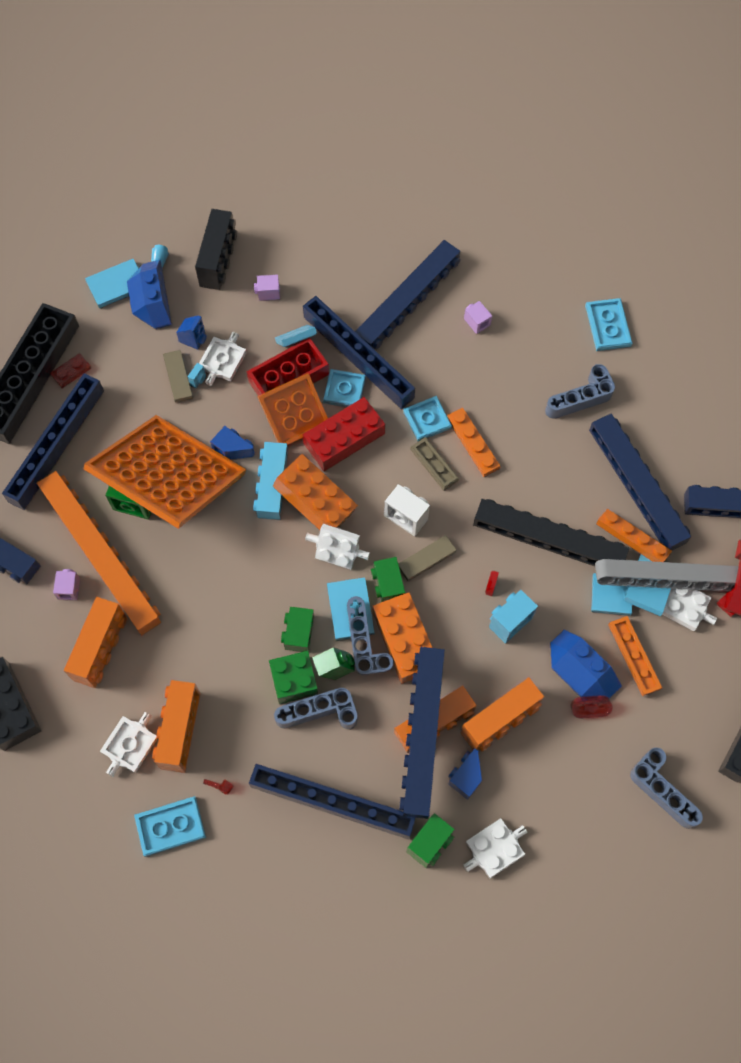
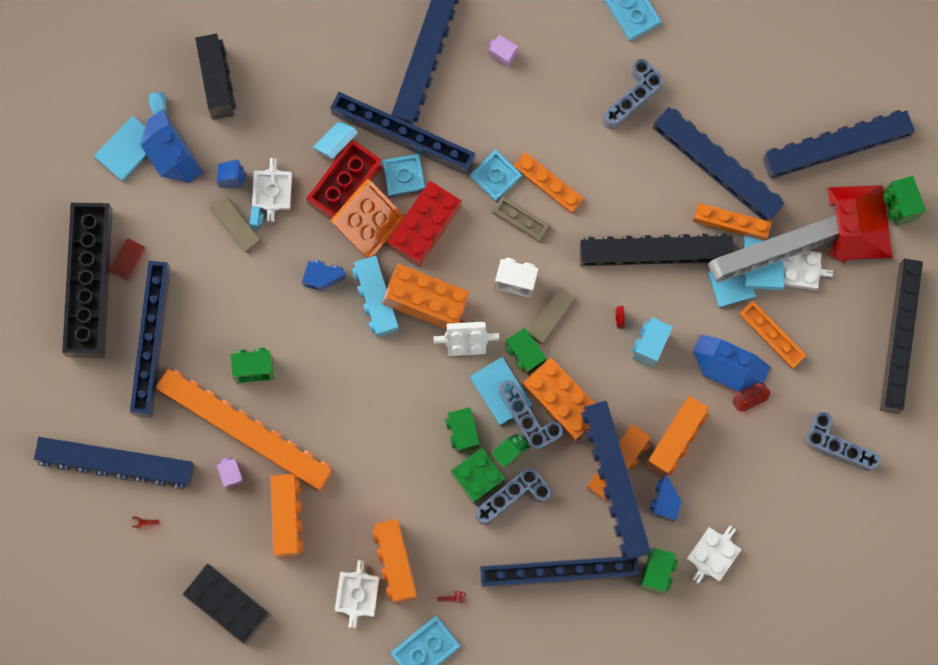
camera: 25 degrees left, 10 degrees up
(165, 470) = (276, 329): orange plate -> none
(267, 287) = (283, 97): lavender brick -> none

